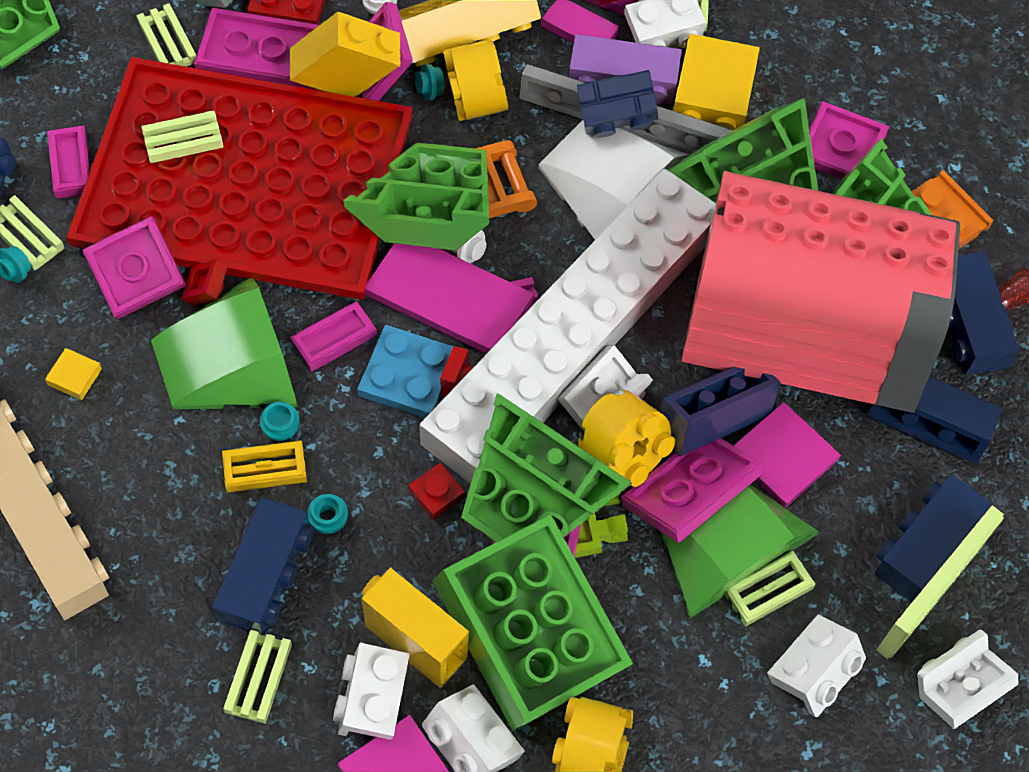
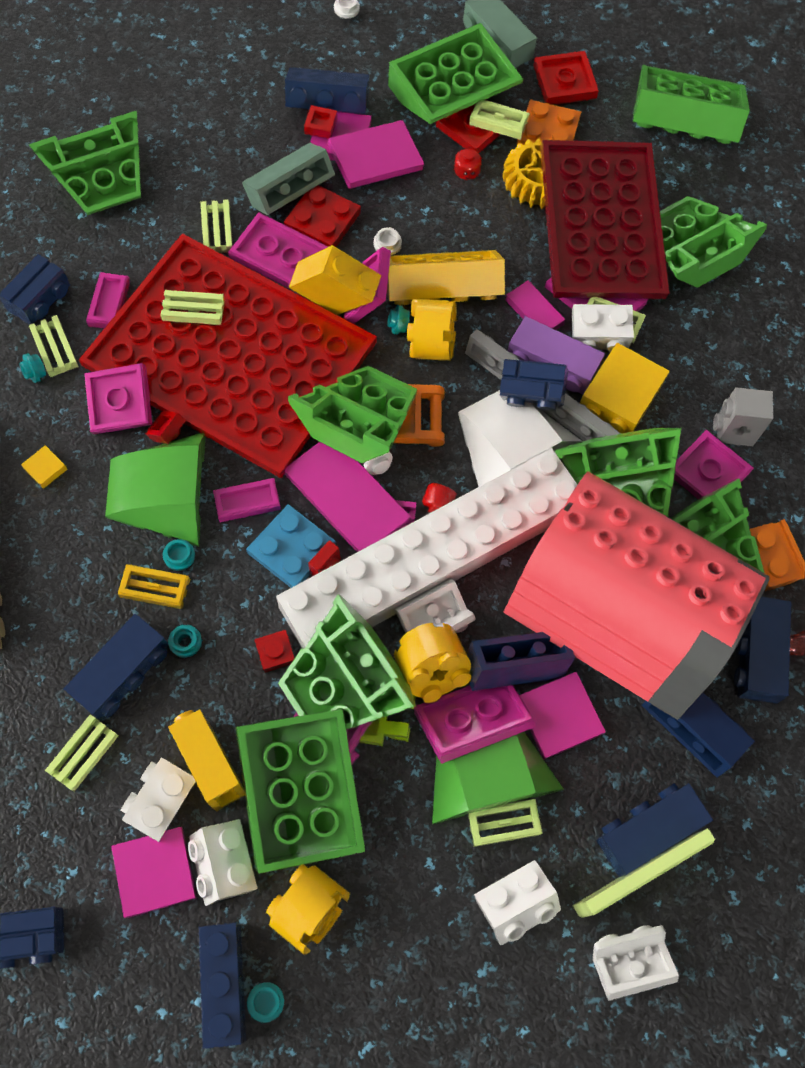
camera: 20 degrees right, 5 degrees up
(553, 263) = (437, 496): none -> red piece
(860, 72) = (744, 416): none -> light grey brick

